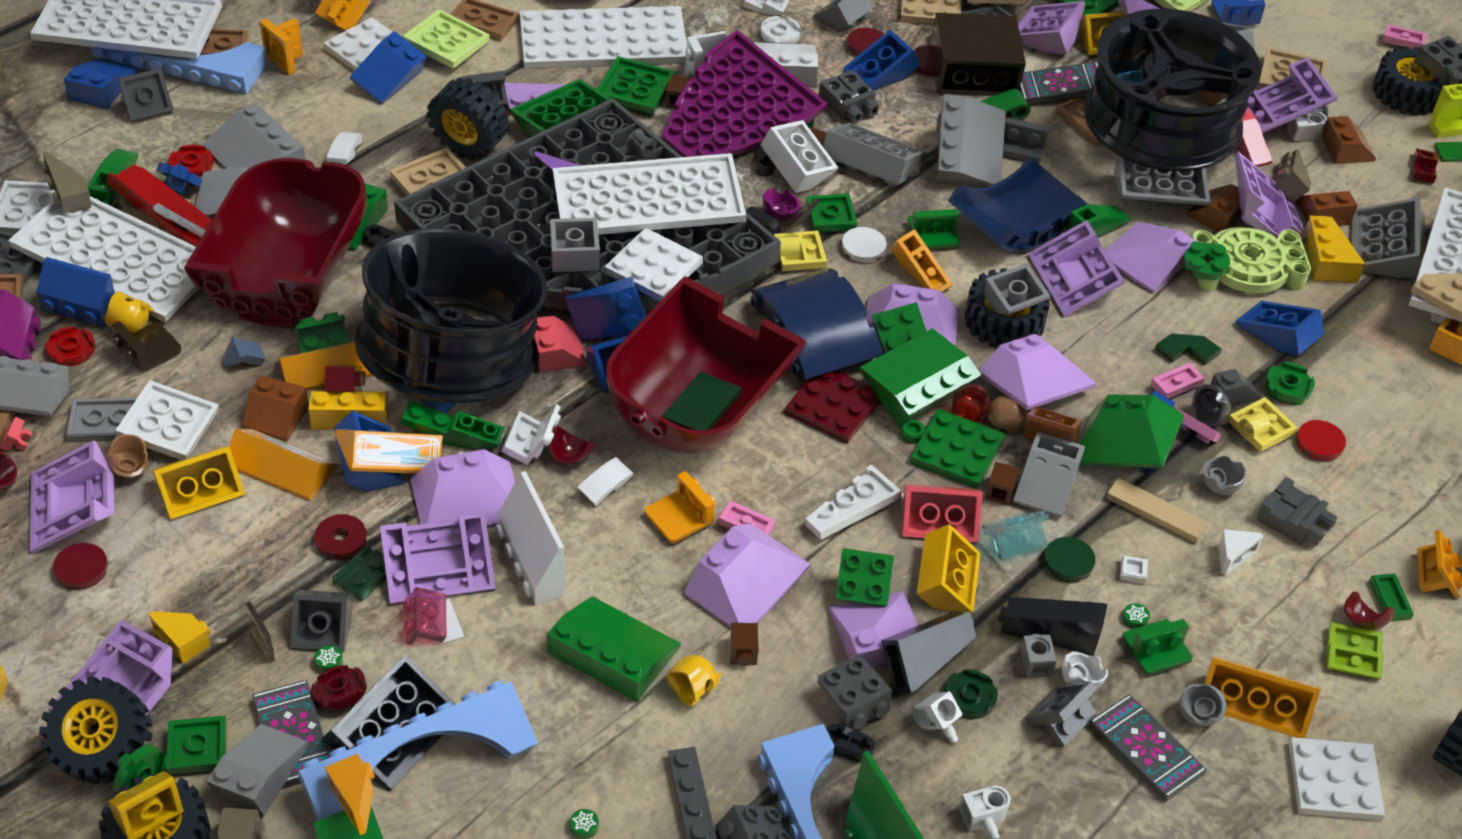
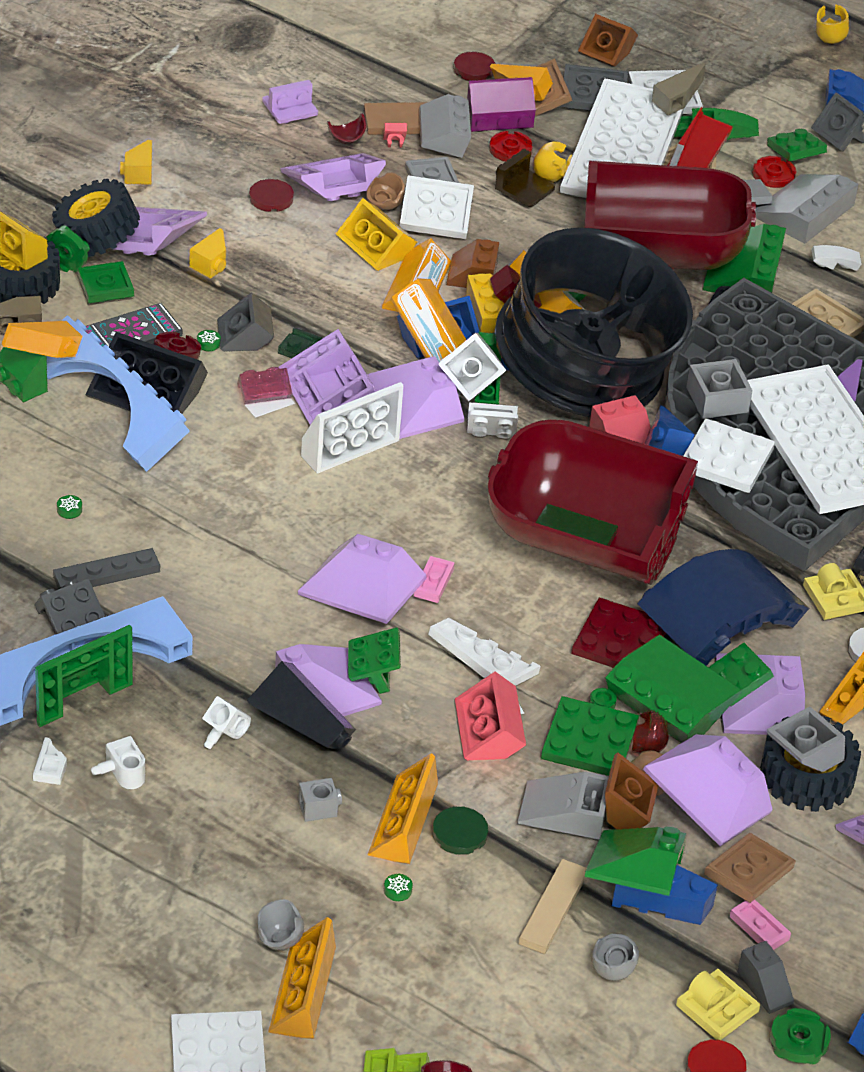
camera: 80 degrees right, 5 degrees down
(74, 291) = (563, 125): blue slope -> none
(159, 135) = (796, 144): none -> green plate
(178, 177) = (736, 159): blue plant -> none
(243, 351) = (533, 233): sand blue tile -> none
(257, 768) = (91, 307): light grey slope -> none
(260, 632) = (218, 290): clear smoke piece -> none
(337, 525) = (352, 322): dark red tile -> none
(464, 427) = (472, 366): none -> white slope
(569, 448) = (486, 446): dark red helmet -> none
(605, 480) = (458, 478): white slope -> none
(611, 647) = (261, 502): green slope -> none
(682, 511) = (432, 532): light orange bracket -> none
(692, 678) = (234, 549): yellow helmet -> none
(743, 644) = (281, 586): reddish brown brick -> none
(850, 742) = (191, 670): black beam -> none
(856, 691) = (234, 658): dark grey bracket -> none
(948, 571) = (410, 730): yellow slope -> none
(972, 693) = (265, 756): dark green tile -> none
(1002, 483) = (546, 763): reddish brown brick -> none
(1018, 533) = (477, 778): clear light blue bracket -> none
(1039, 579) = (405, 812): none -> light orange slope
(1064, 711) = (248, 820): dark grey bracket -> none
(1069, 623) = (359, 810): black slope -> none
(1082, 668) = (302, 831): white hair -> none
(1119, 372) = (749, 867): none -> medium nougat tile
(1133, 570) = (461, 885): white tile -> none
(1147, 747) = (227, 893): dark grey tile -> none
(1159, 645) = (357, 898): green bracket -> none
(1198, 346) = (832, 946): dark green tile -> none
(1204, 433) = (691, 938): bright pink plate -> none
(1211, 404) = (726, 951): dark grey hair -> none
(1236, 548) = (508, 969): white slope -> none
(1296, 513) = (584, 1027): dark grey hips -> none

